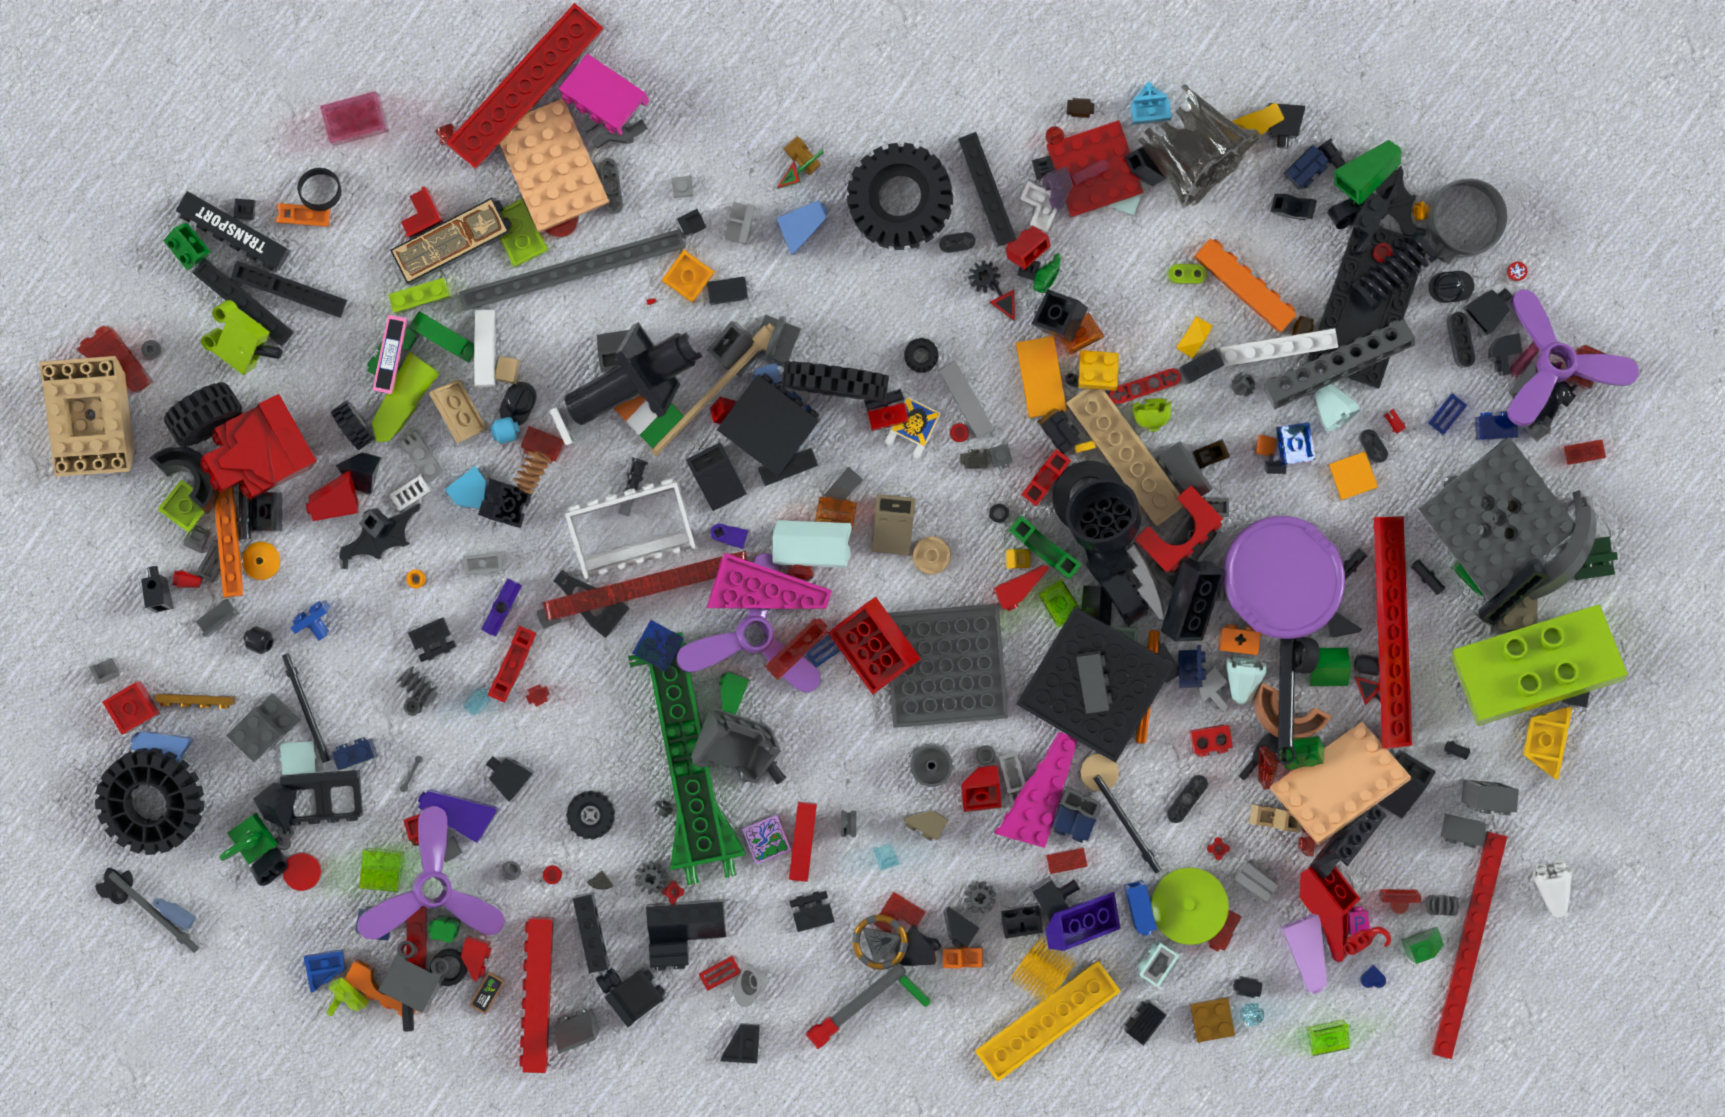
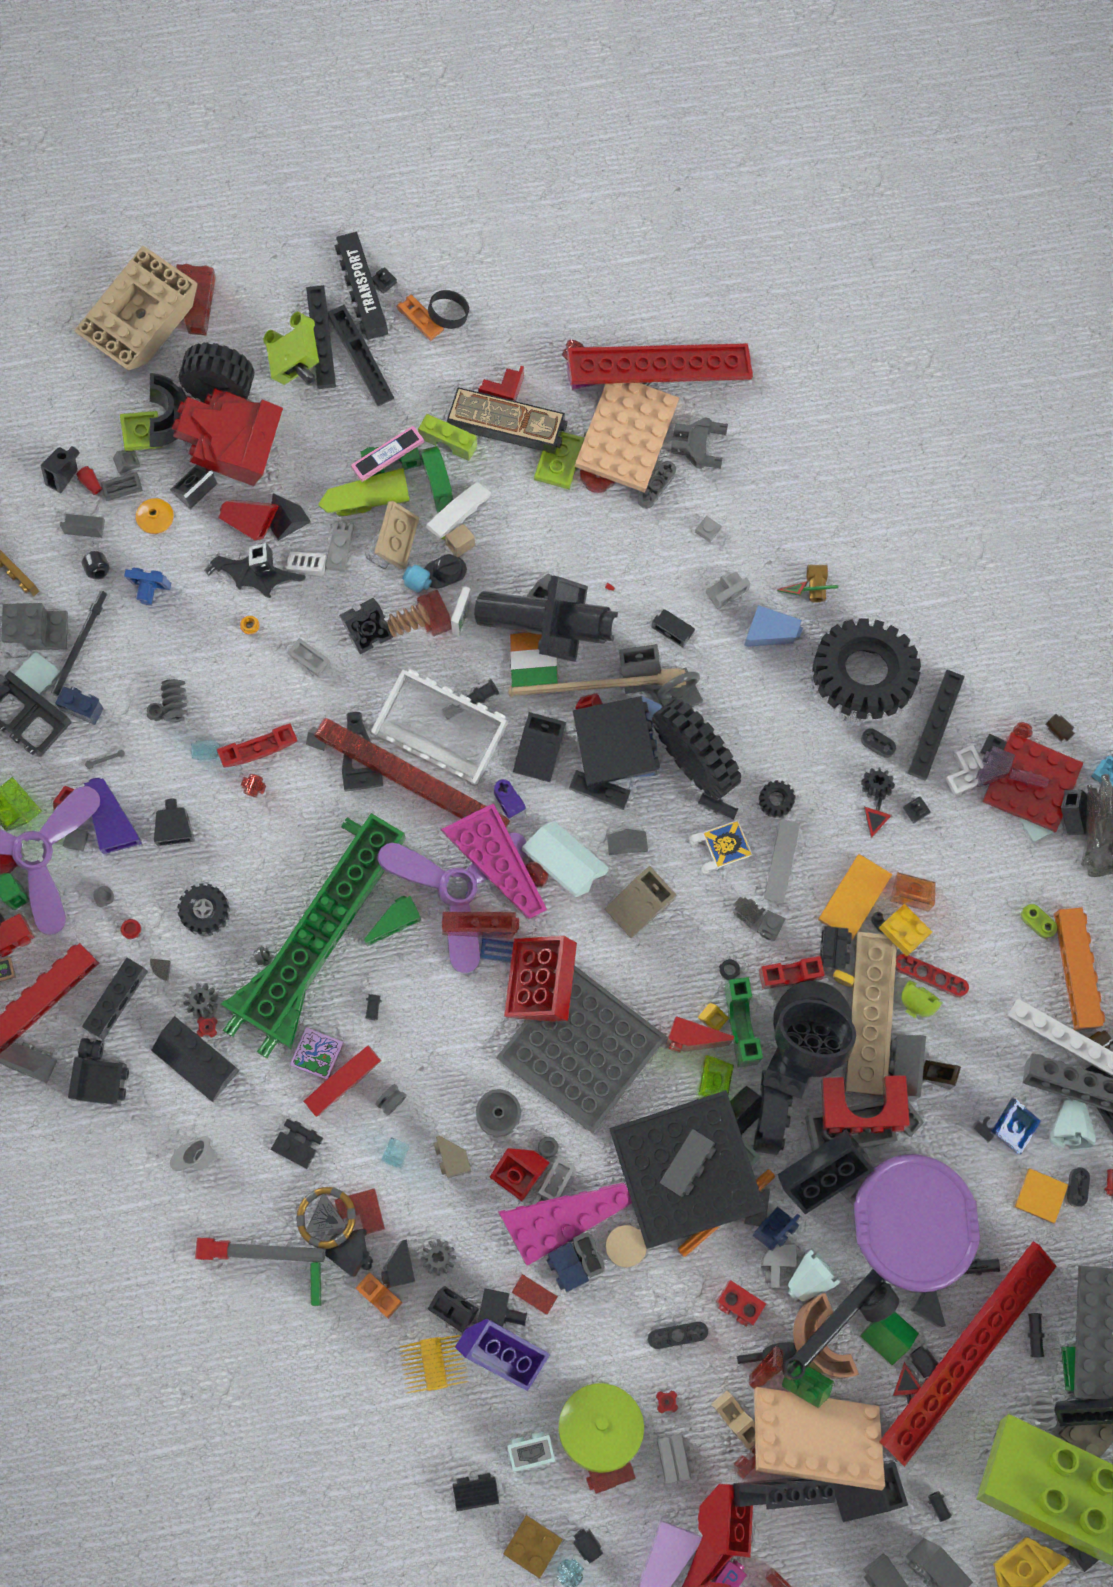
camera: 40 degrees right, 15 degrees down
(157, 349) = (226, 316): dark grey plate -> none
(186, 246) = (320, 265): green brick -> none
(228, 544) = (145, 480): orange plate -> none
(244, 516) = (173, 476): black pin -> none
(352, 425) = (313, 476): black wheel -> none
(354, 118) = (519, 285): clear pink brick -> none
(431, 633) = (220, 671): black plate -> none
(469, 489) = (349, 595): medium azure slope -> none
(495, 618) = (302, 696): dark purple piece -> none
(572, 270) = (574, 515): dark grey plate -> none
(602, 94) = (710, 413): dark pink panel -> none
(658, 645) = (377, 826): clear blue tile -> none
(669, 954) = (156, 1072): black brick -> none
(688, 276) = (653, 592): light orange tile -> none
(691, 223) = (691, 557): black panel -> none
(734, 965) = (163, 1121): red tile -> none
(736, 743) = (363, 954): dark grey windscreen -> none
(743, 1045) = (141, 1200): black wing -> none
(836, 511) = (607, 852): clear orange brick -> none
(888, 417) = (710, 821): red plate -> none
(931, 555) = (648, 954): tan tile -> none
(959, 432) = (754, 881): red plate -> none
(1027, 247) = (931, 790): red brick -> none
(1047, 274) = (928, 825): green piece -> none
(1047, 1022) = (397, 1414): yellow plate -> none
(1059, 315) = (912, 860): black brick -> none
(1140, 907) = (559, 1389): blue window -> none
(1147, 855) = (604, 1351): black bar -> none
(1148, 587) = (800, 1129): light grey slope -> none
(1194, 337) = (1003, 973): yellow slope -> none
(1201, 366) = (991, 999): black brick -> none
(1243, 384) = (1012, 1042): dark grey gear -> none
(1248, 646) = (838, 1254): orange brick -> none
(1265, 445) = (989, 1107): orange slope -> none

